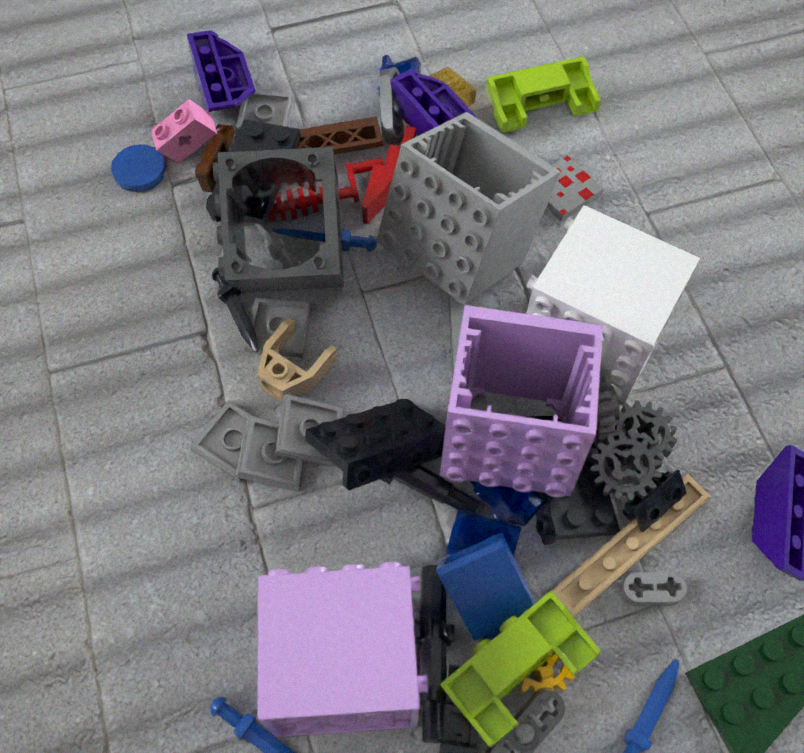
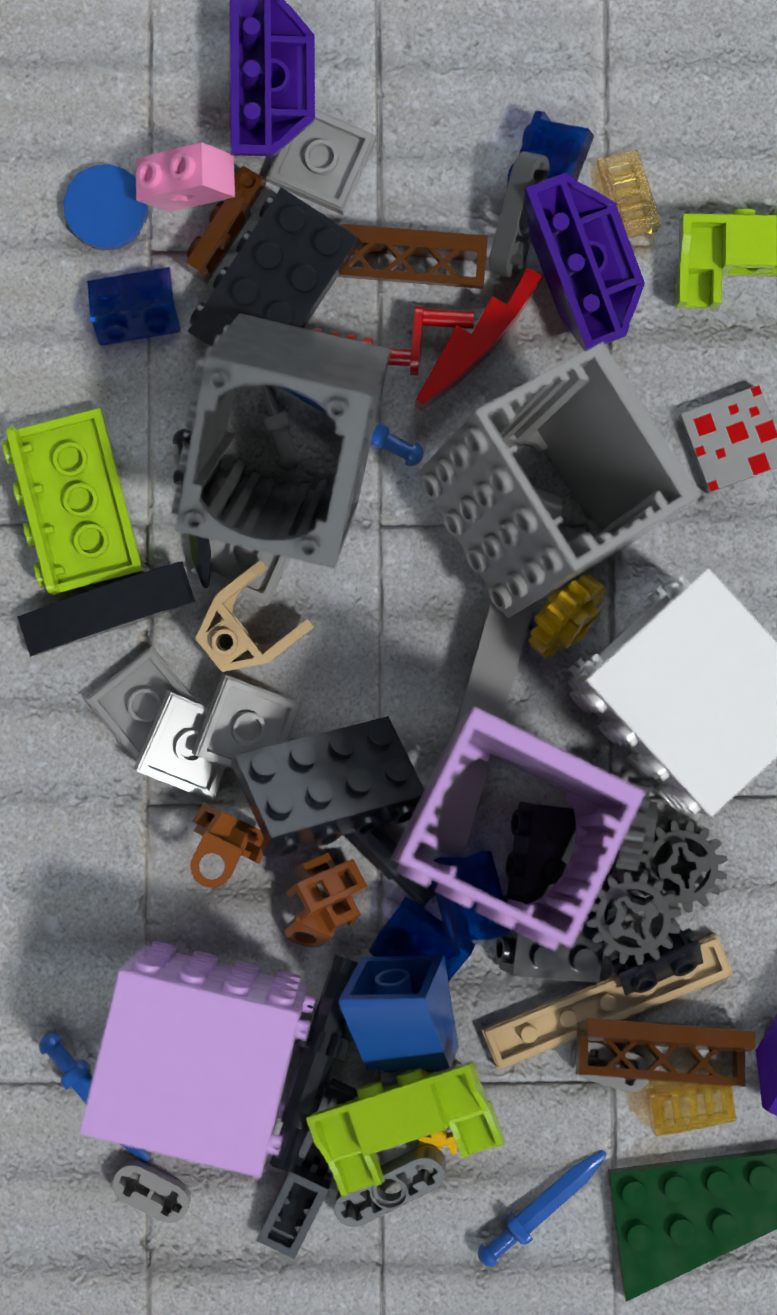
camera: 15 degrees right, 25 degrees up
(154, 328) = (73, 502): none -> lime bracket
(168, 212) = (133, 306): none -> clear blue bracket
(189, 382) = (106, 608): none -> black slope
(315, 501) = (227, 838): none -> dark orange piece
(404, 533) = (319, 916): none -> dark orange piece
(504, 290) = (567, 616): none -> yellow gear
(683, 548) = (663, 1036): none -> reddish brown fence
(704, 614) = (662, 1126): none -> clear yellow slope

